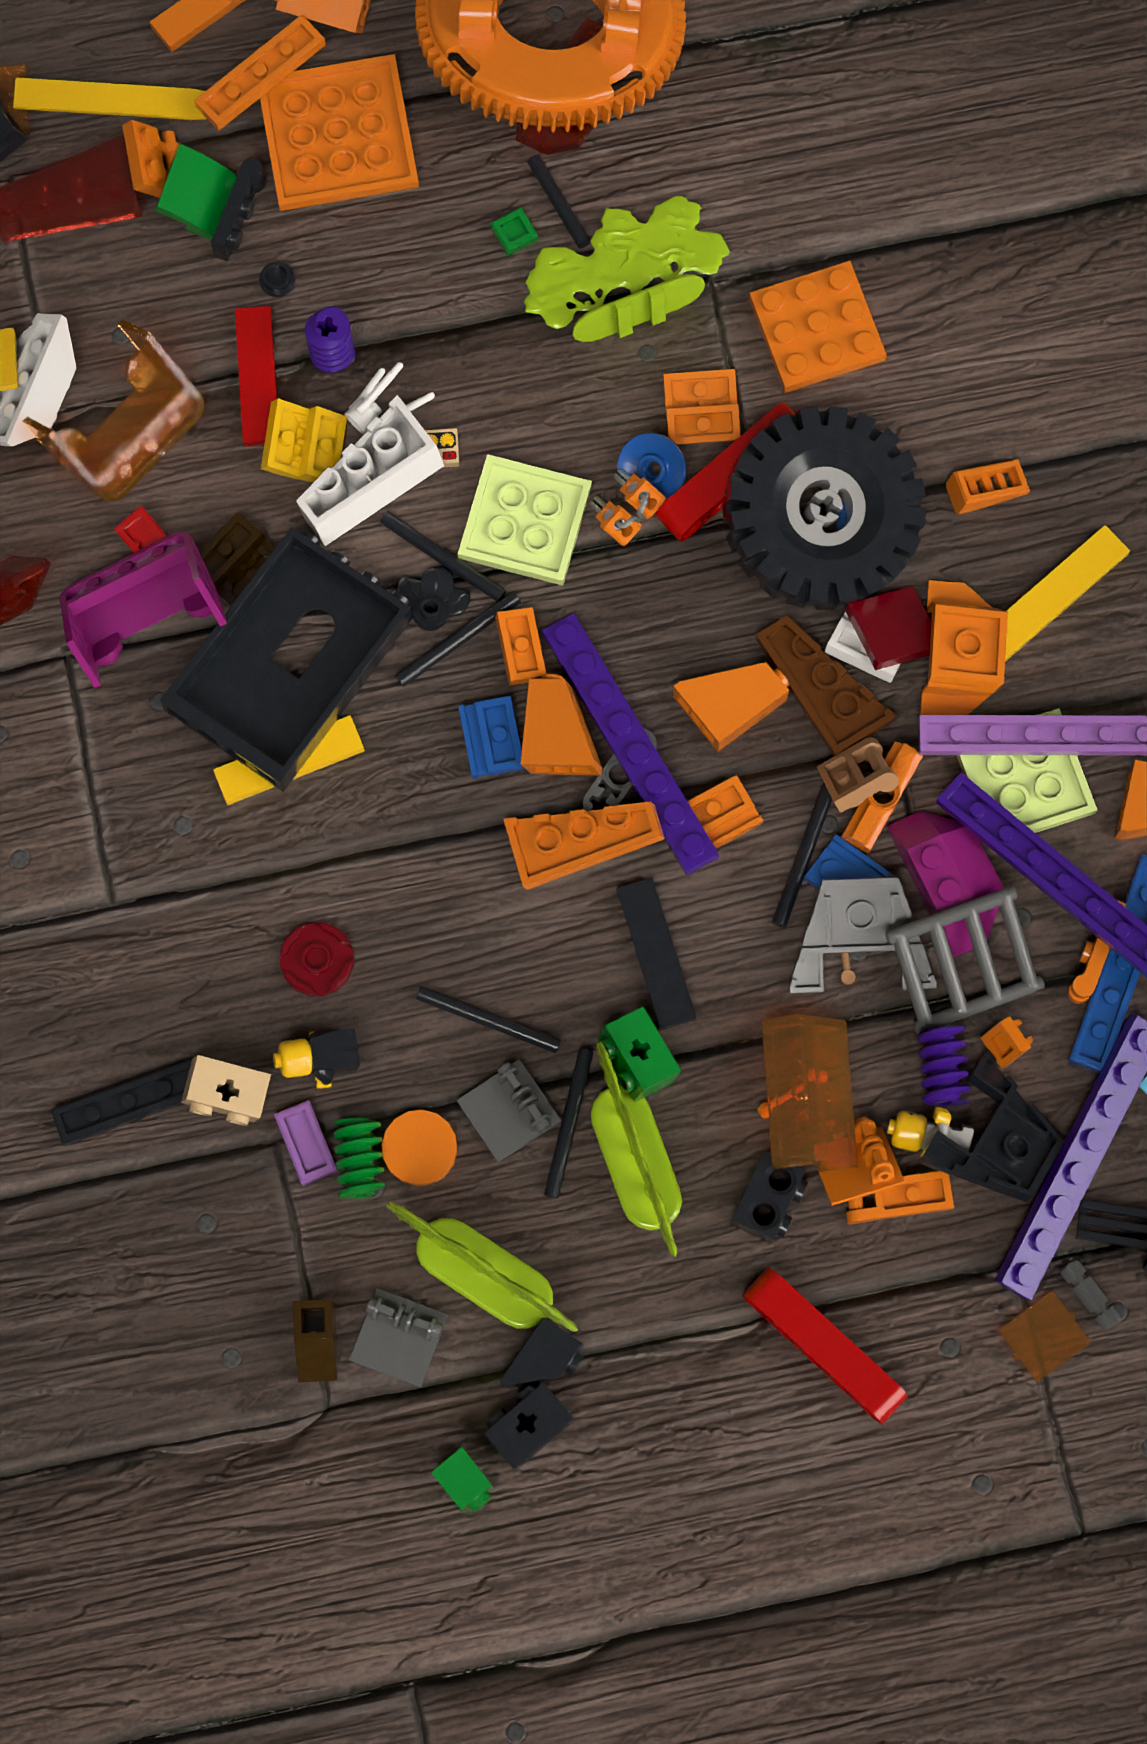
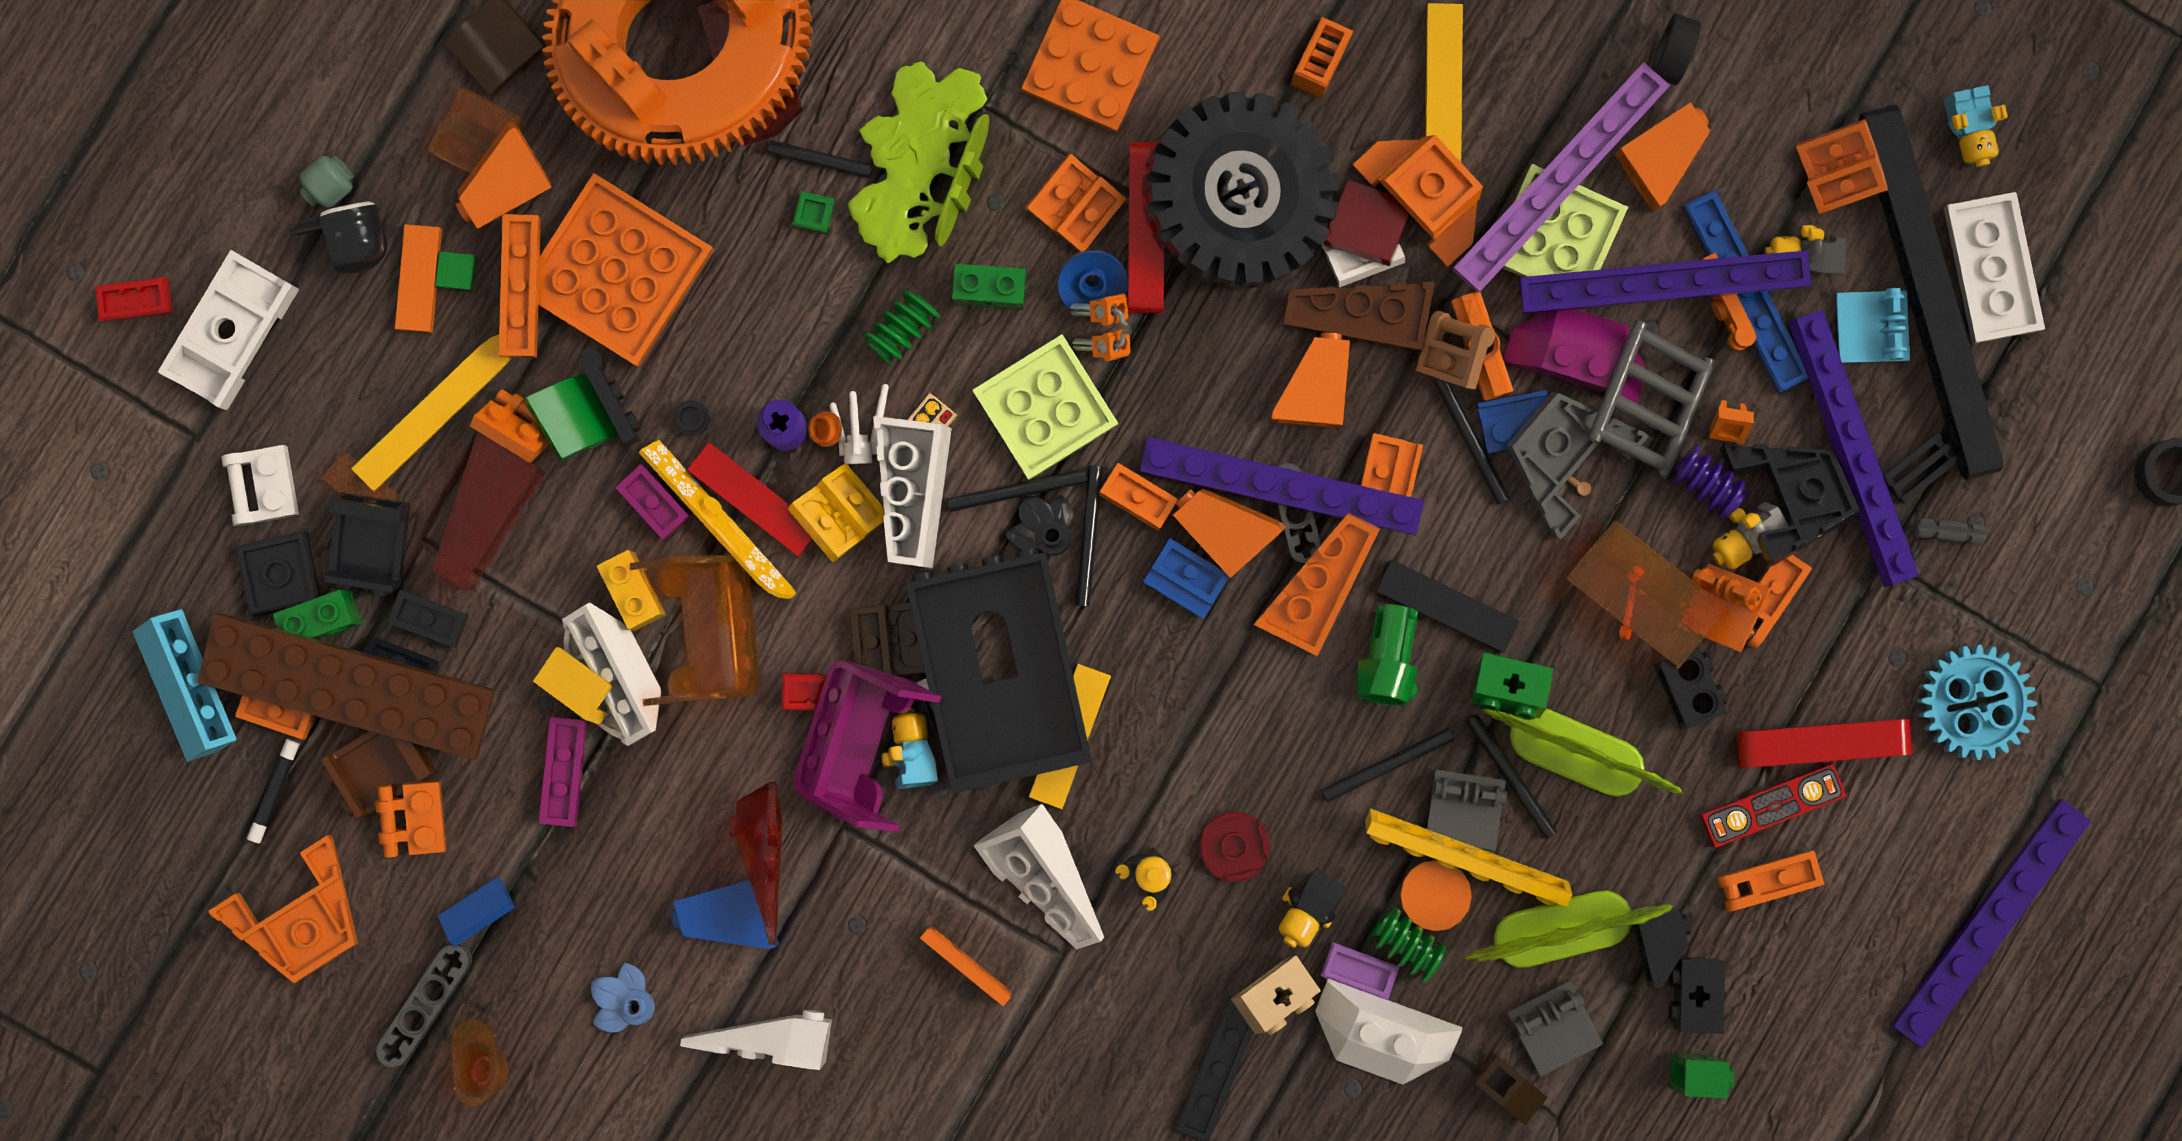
camera: 55 degrees left, 10 degrees up
(38, 837) = (966, 965): none -> orange tile
(103, 347) = (631, 591): none -> yellow brick
(165, 654) = (913, 754): none -> piece
(167, 820) = (1038, 862): none -> white wedge
(187, 306) = (652, 502): none -> magenta plate
(215, 361) = (716, 520): none -> yellow piece
(232, 27) = (456, 271): none -> green tile
(236, 909) = (1151, 874): none -> yellow piece
(271, 1205) = (1383, 1034): none -> white wedge
(357, 377) = (825, 429): none -> orange plate
(475, 1154) = (1479, 862): none -> yellow plate
(485, 362) = (900, 326): none -> green piece
(556, 948) = (1387, 672): none -> green piece
(577, 398) = (989, 286): none -> green brick
(675, 1403) = (1772, 880): none -> orange plate
(737, 1352) = (1773, 805): none -> tile
(807, 1618) = (1990, 923): none -> dark purple plate
(954, 1469) = (1983, 732): none -> medium azure gear
(1044, 1336) = (1948, 588): clear orange piece -> none

